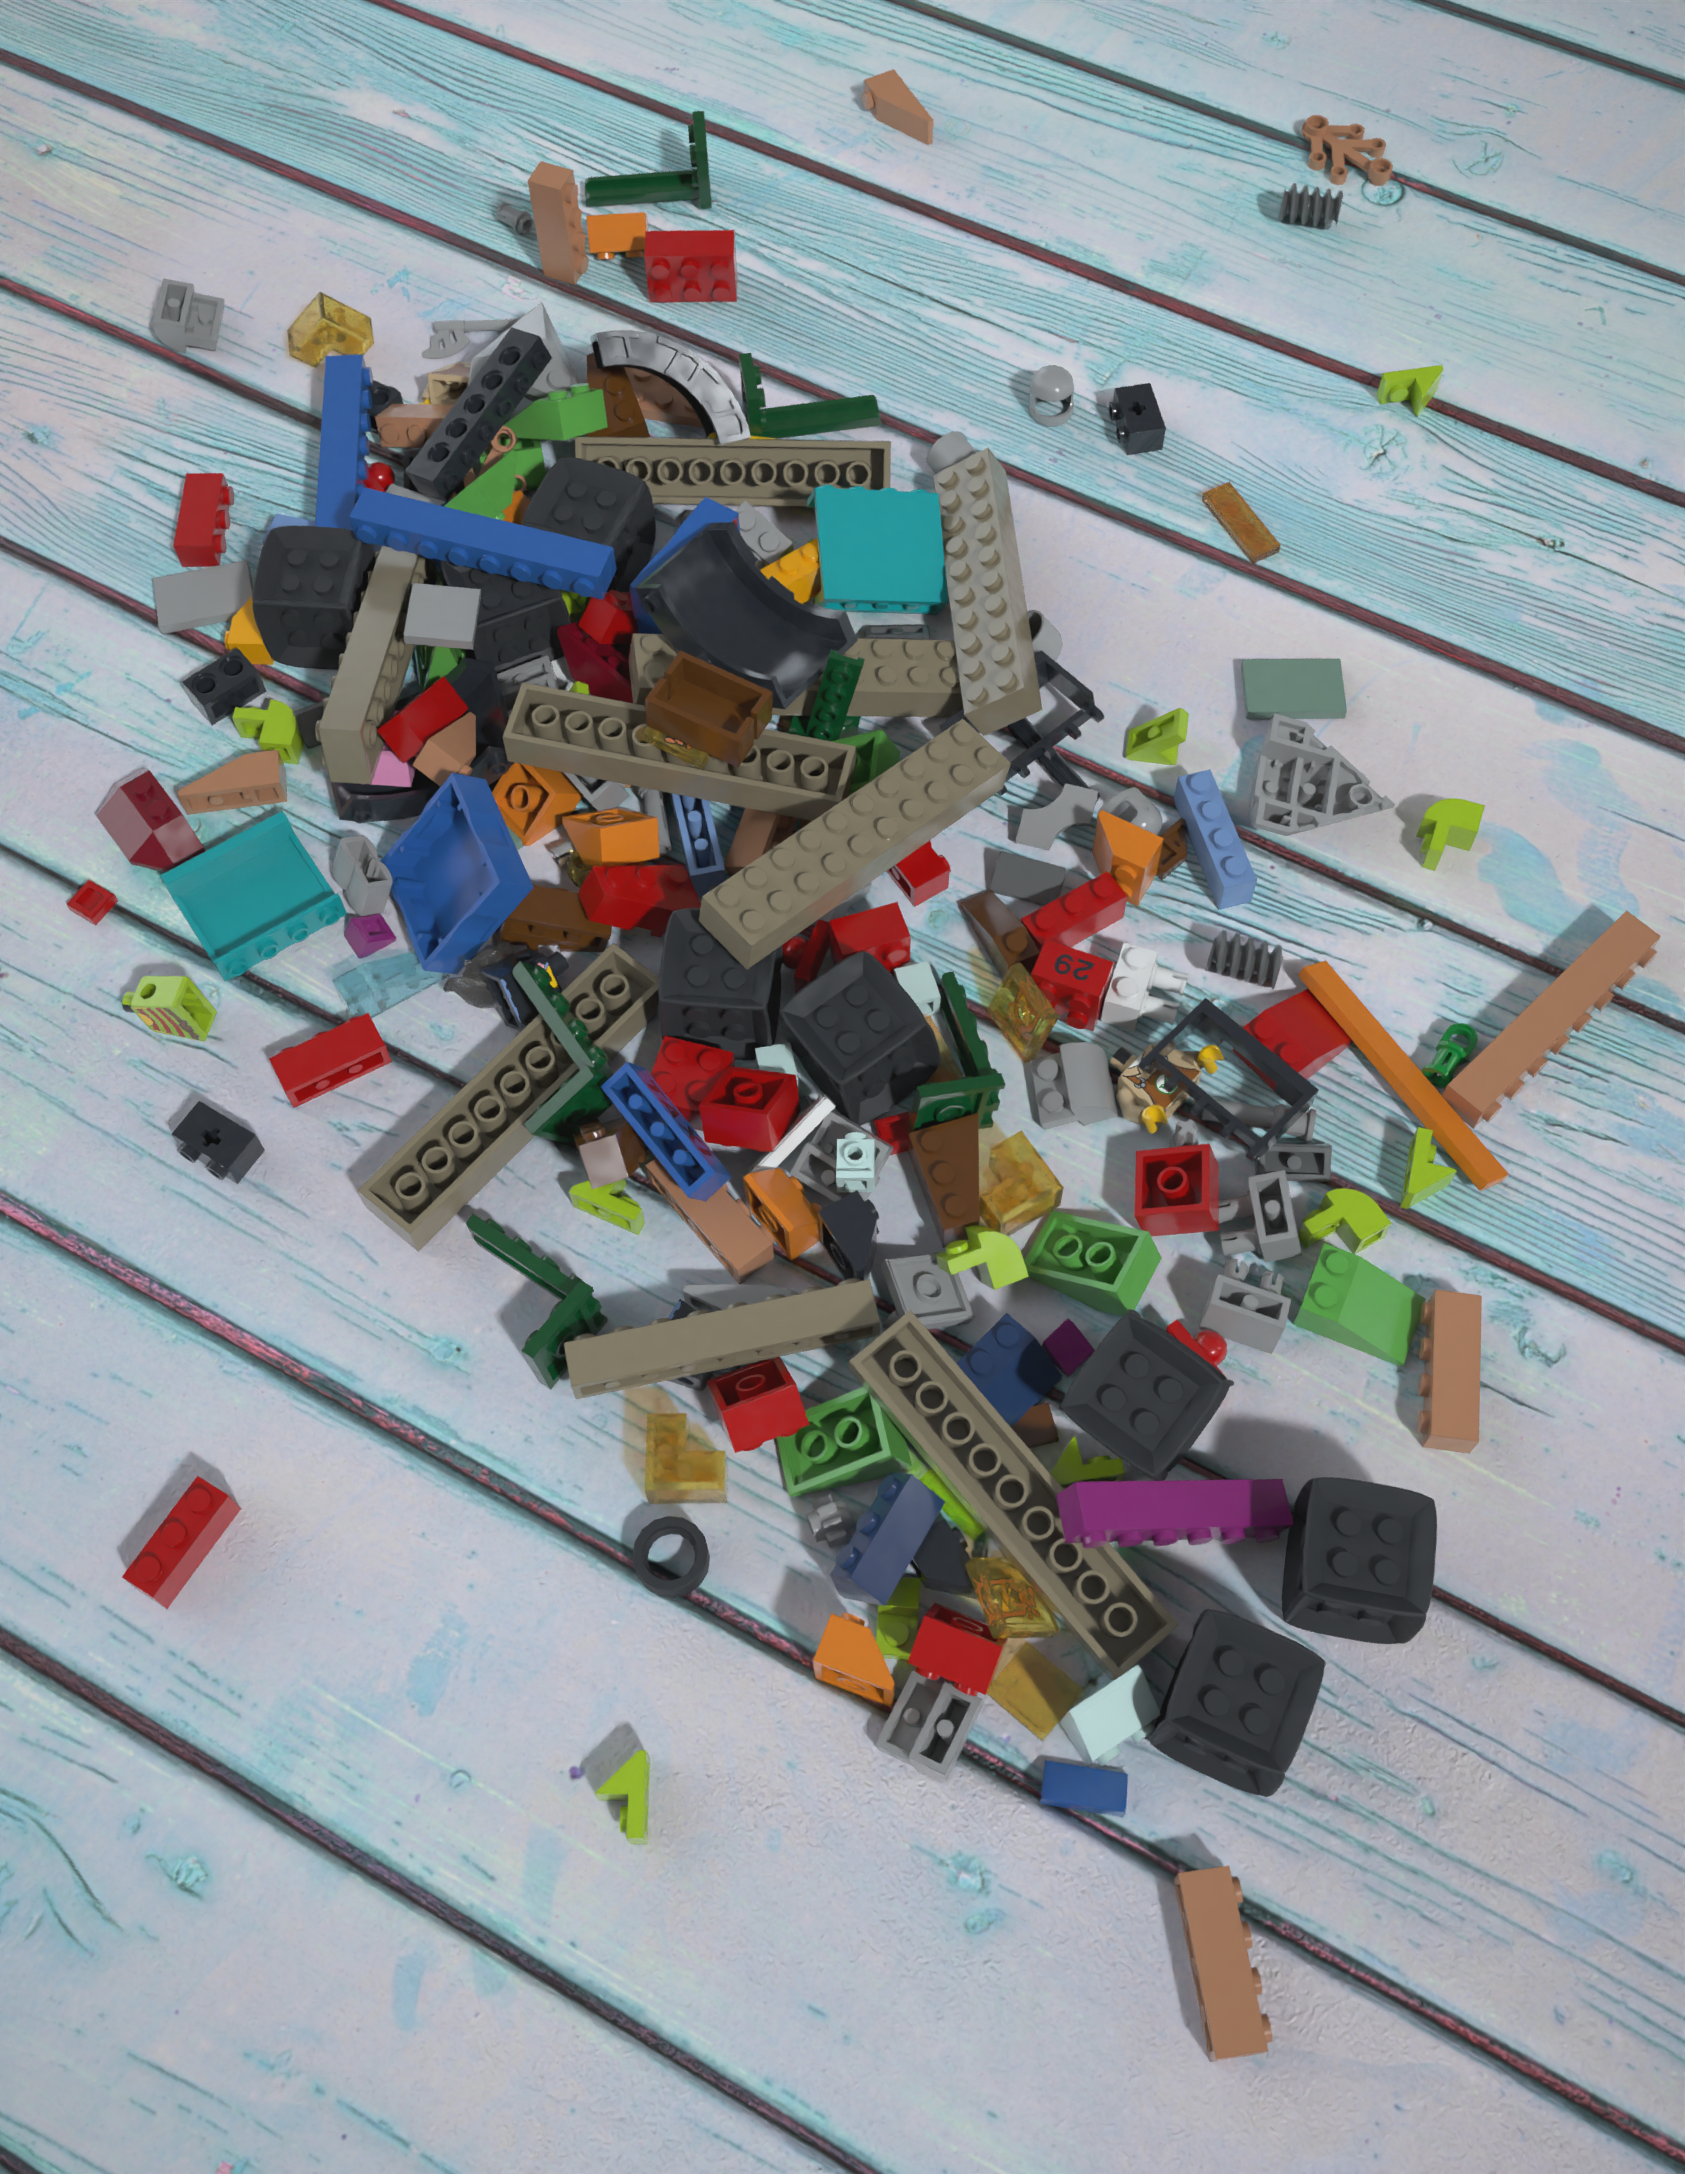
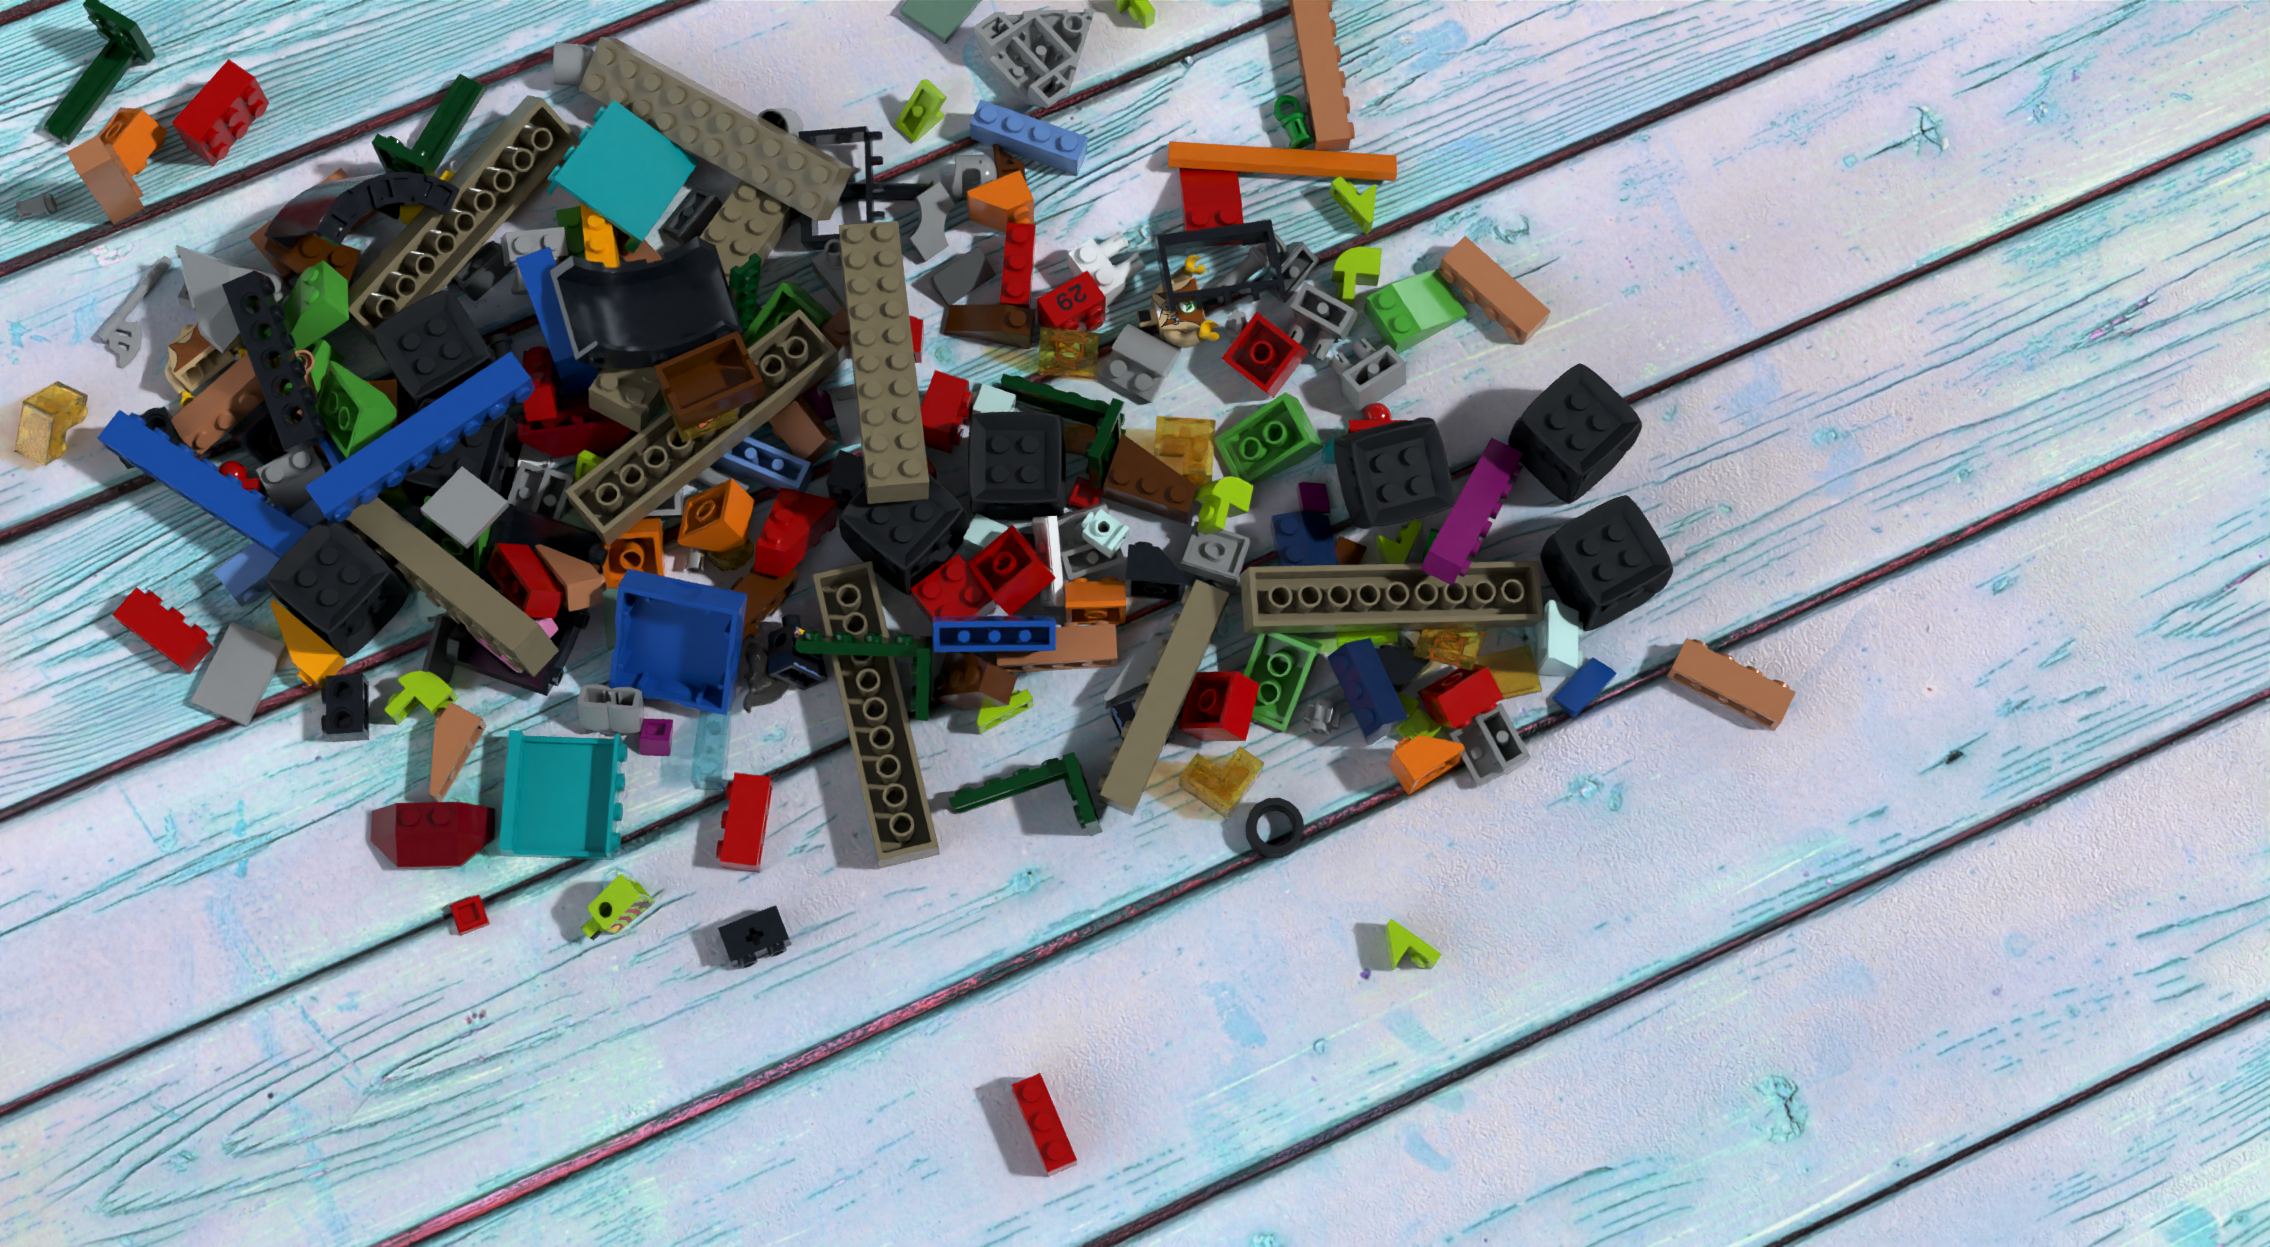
camera: 60 degrees left, 10 degrees up
(1245, 958) = (1132, 186): dark grey piece -> none

